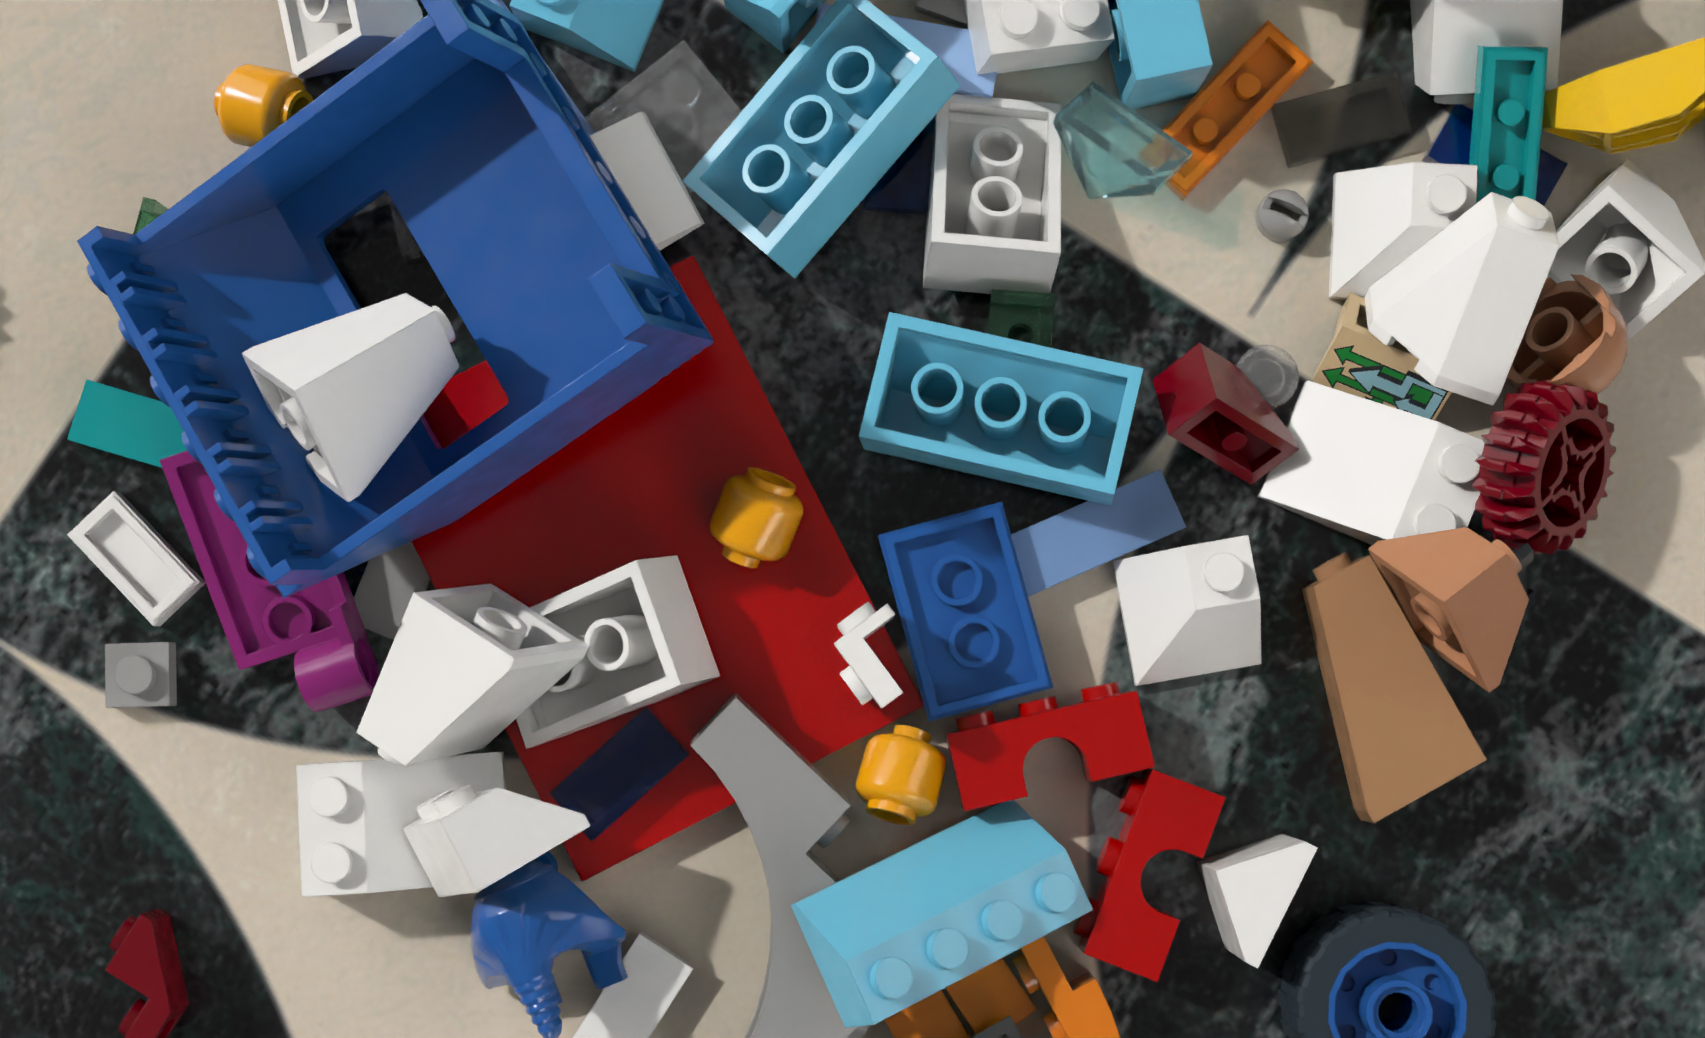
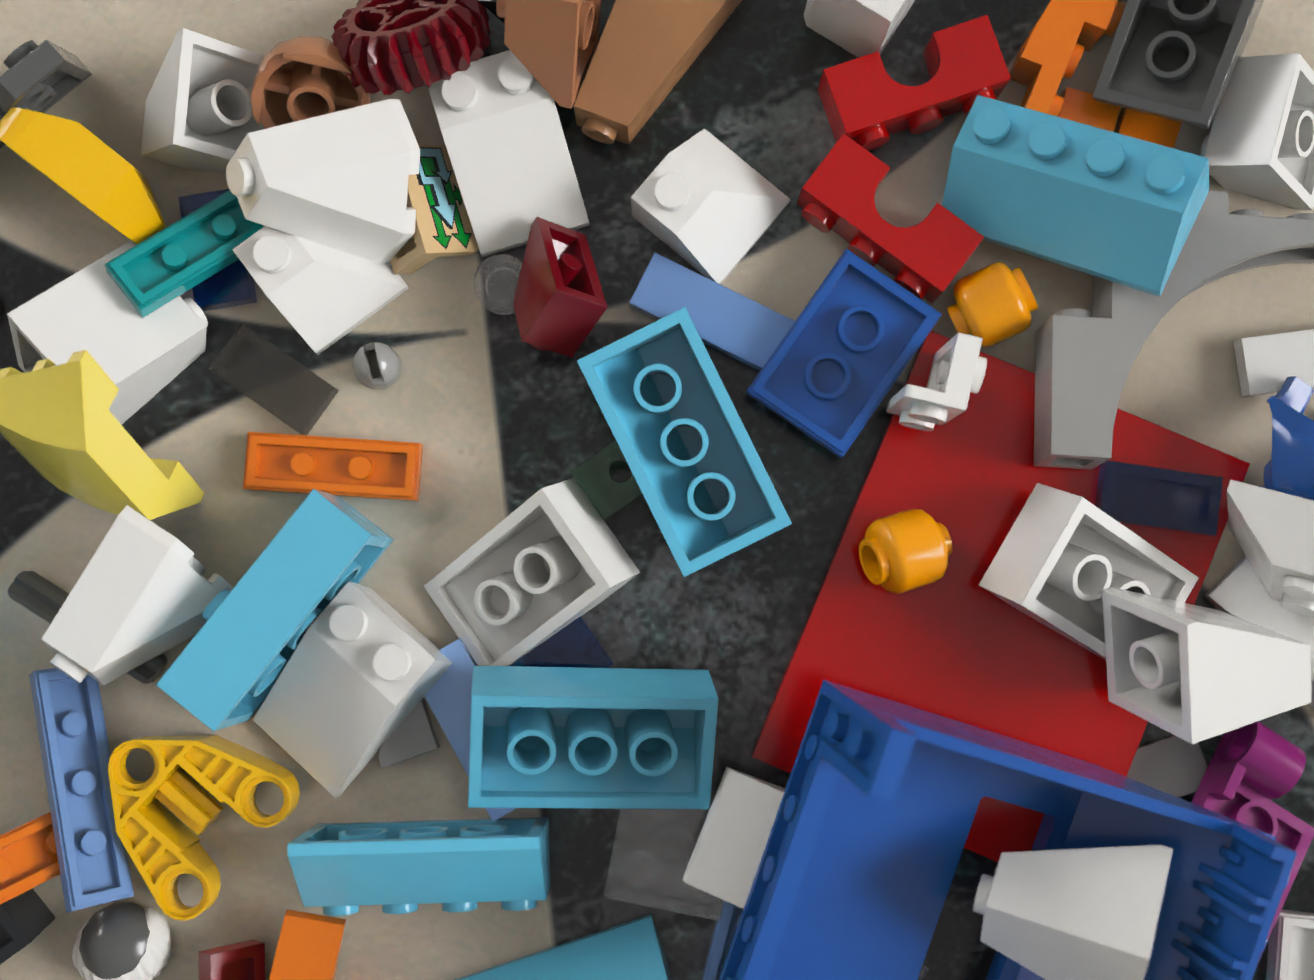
camera: 130 degrees left, 0 degrees up
(1116, 147) = (424, 518): clear light blue slope -> none

